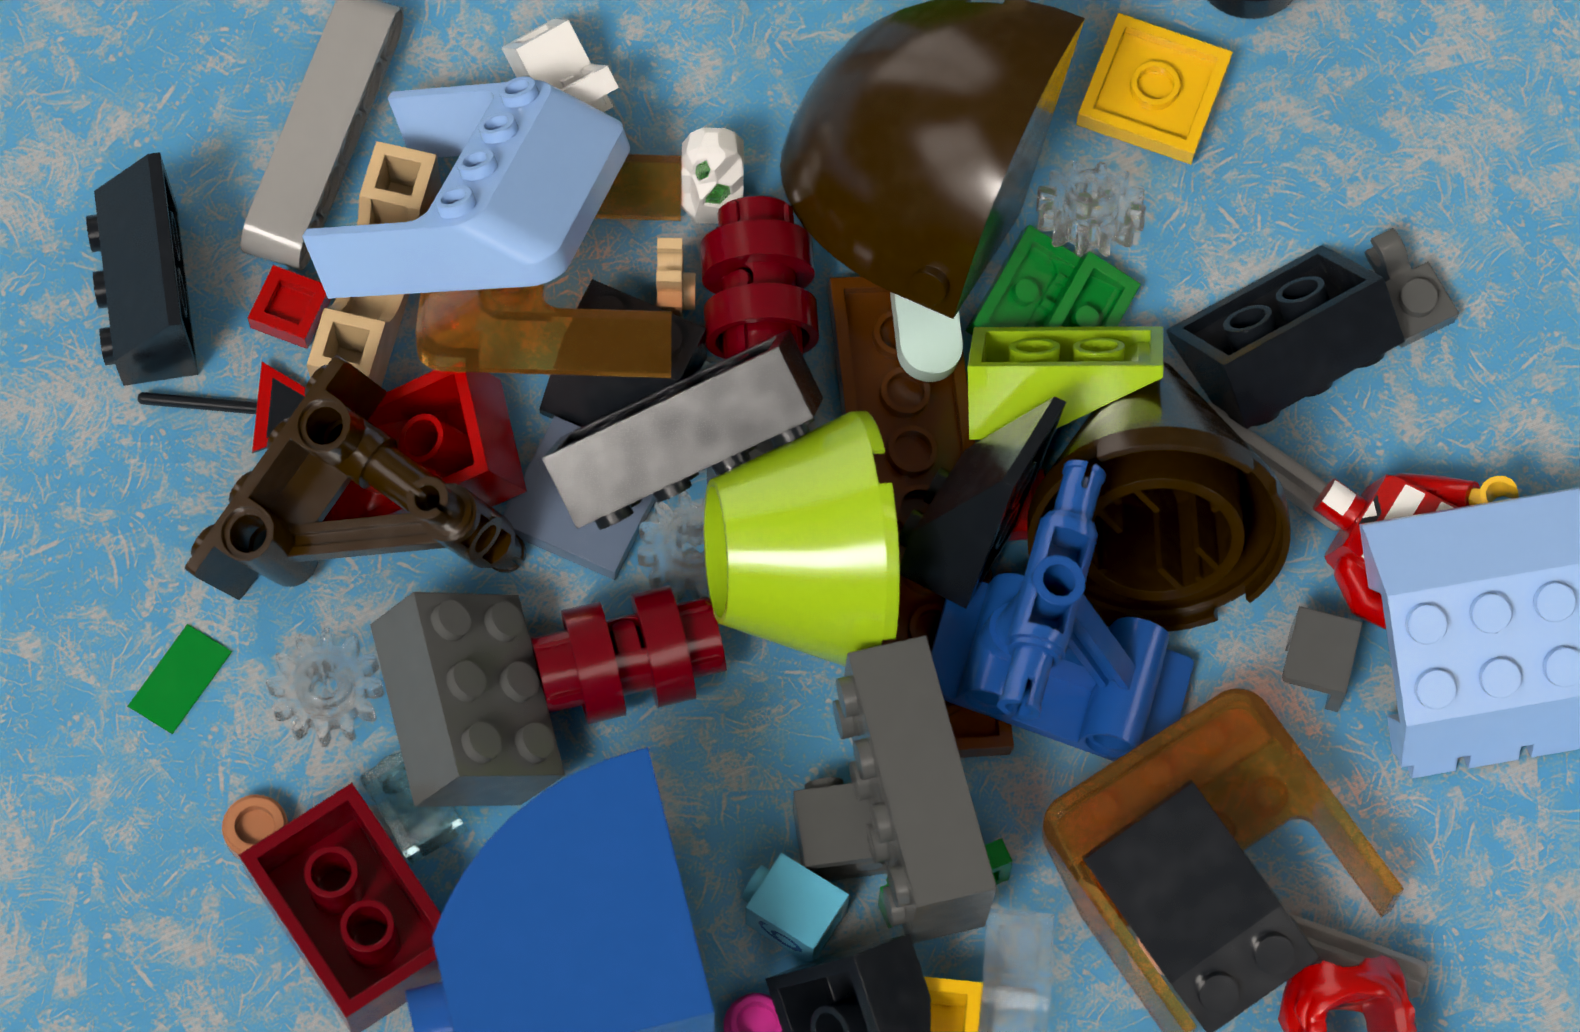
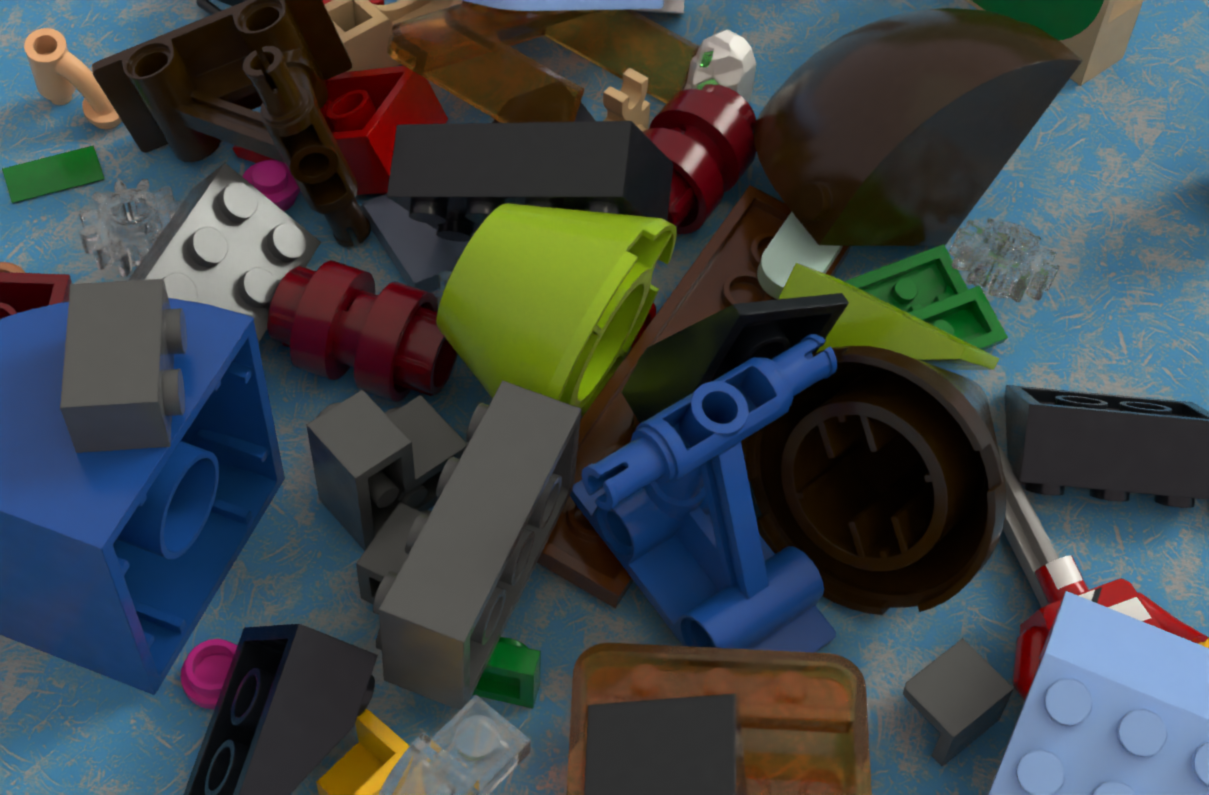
camera: 35 degrees right, 15 degrees down
(110, 574) = (61, 73): none -> light nougat plant
(398, 569) = (273, 181): none -> dark pink plate
(610, 862) = (121, 365): none -> dark grey brick
(747, 762) = (377, 459): none -> dark grey brick
(794, 907) = (329, 594): medium azure brick -> none
(1154, 88) = (1122, 217): yellow plate -> none

